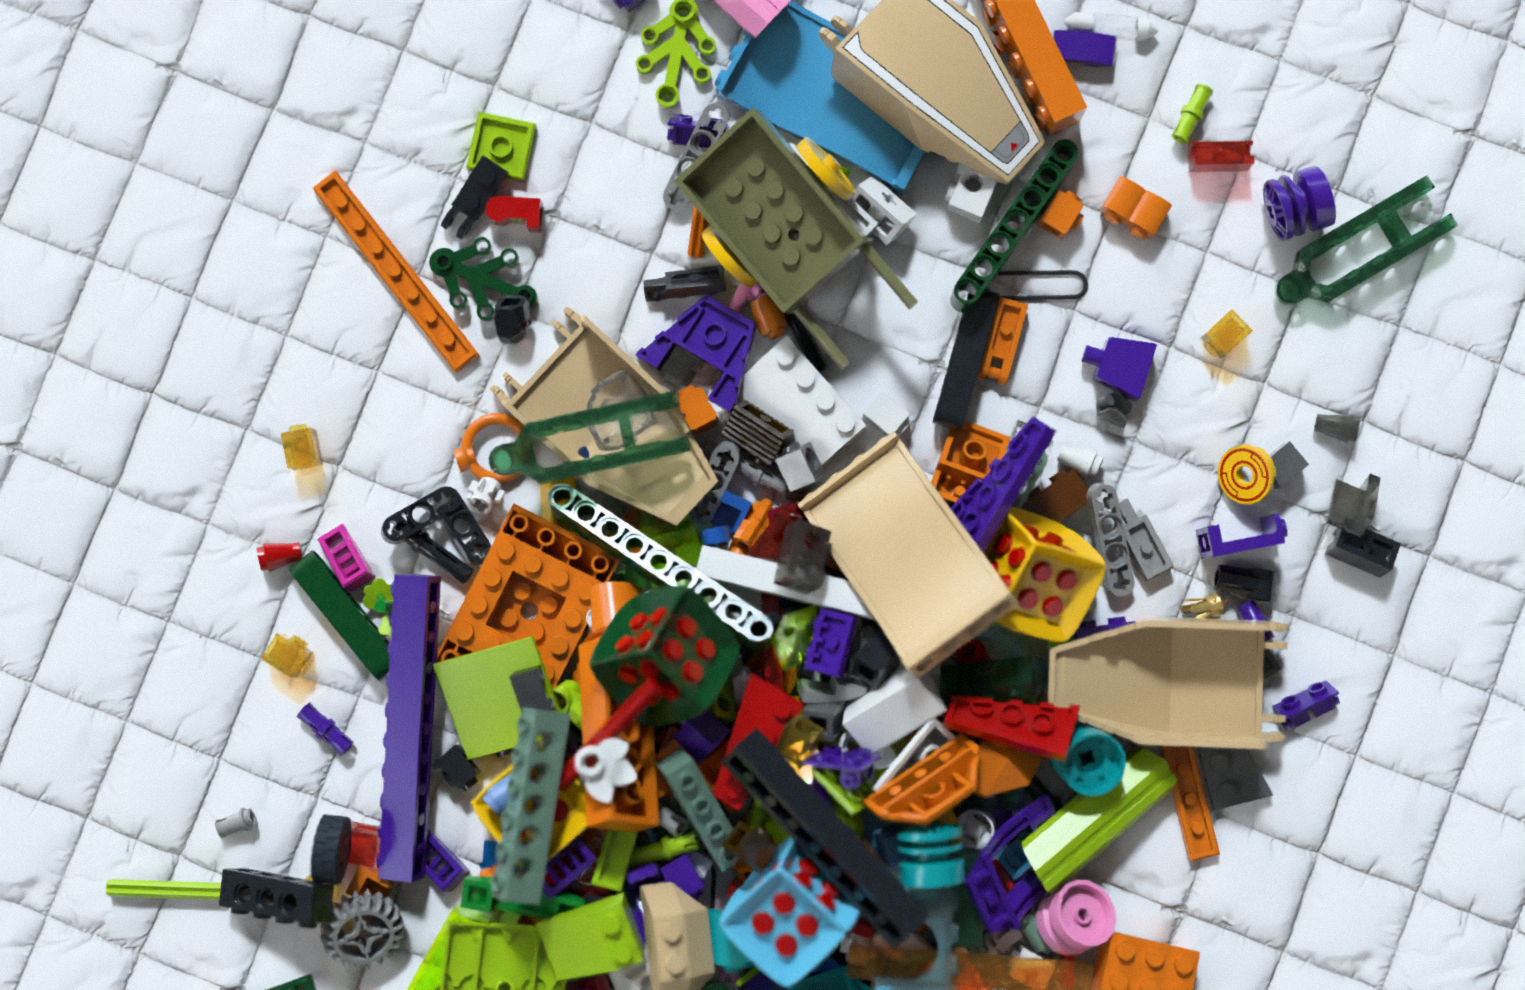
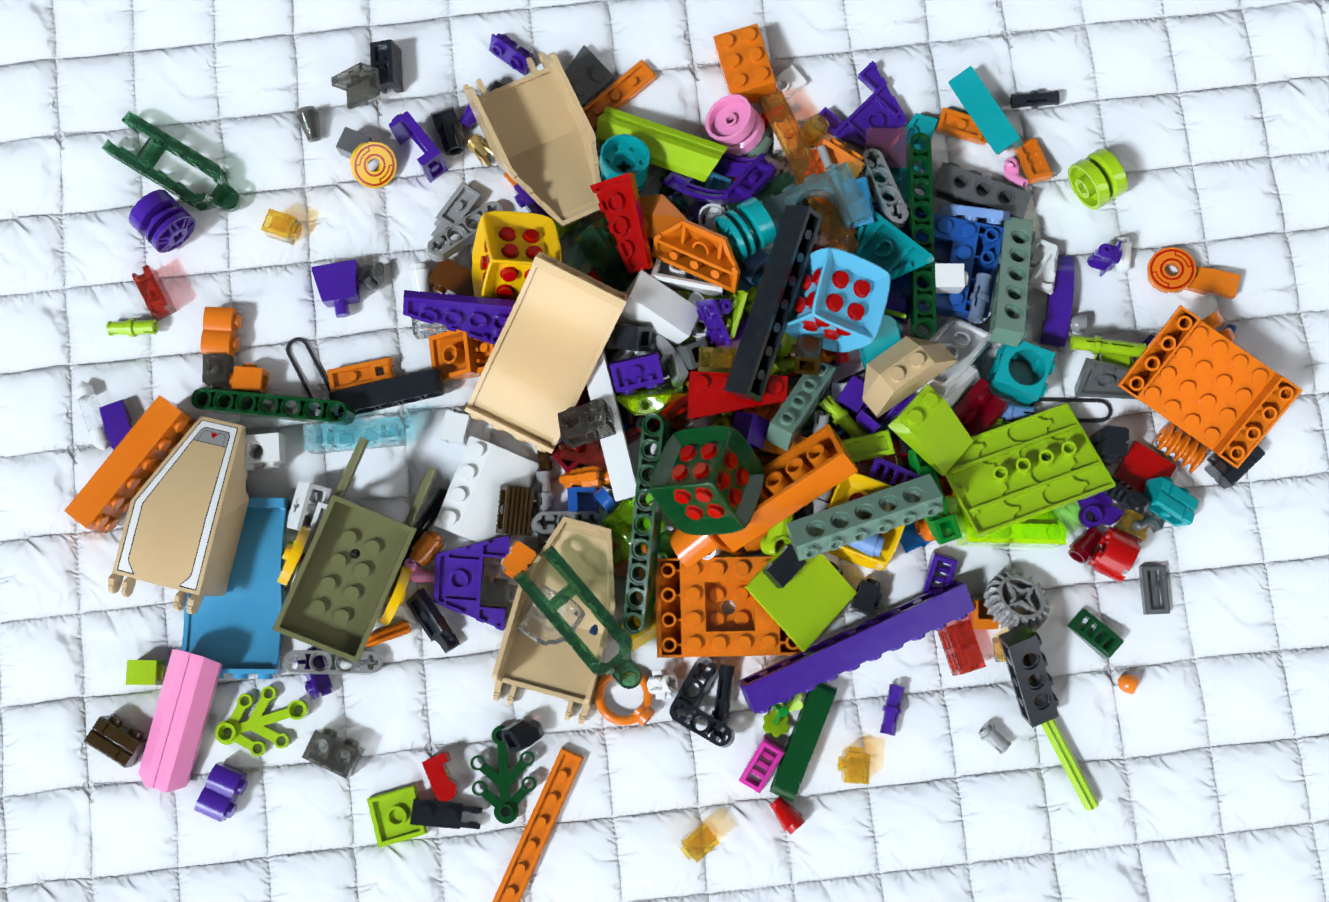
camera: 125 degrees left, 5 degrees down
(331, 849) = (975, 651): black wheel -> none
(596, 106) = (331, 758): none -> clear smoke brick
(610, 768) = (810, 473): white plate -> none
(613, 727) = (782, 487): red axle -> none
(799, 465) = (523, 467): brick -> none
(934, 299) = (337, 438): none -> clear light blue arch
(1091, 184) = (217, 370): none -> clear smoke brick

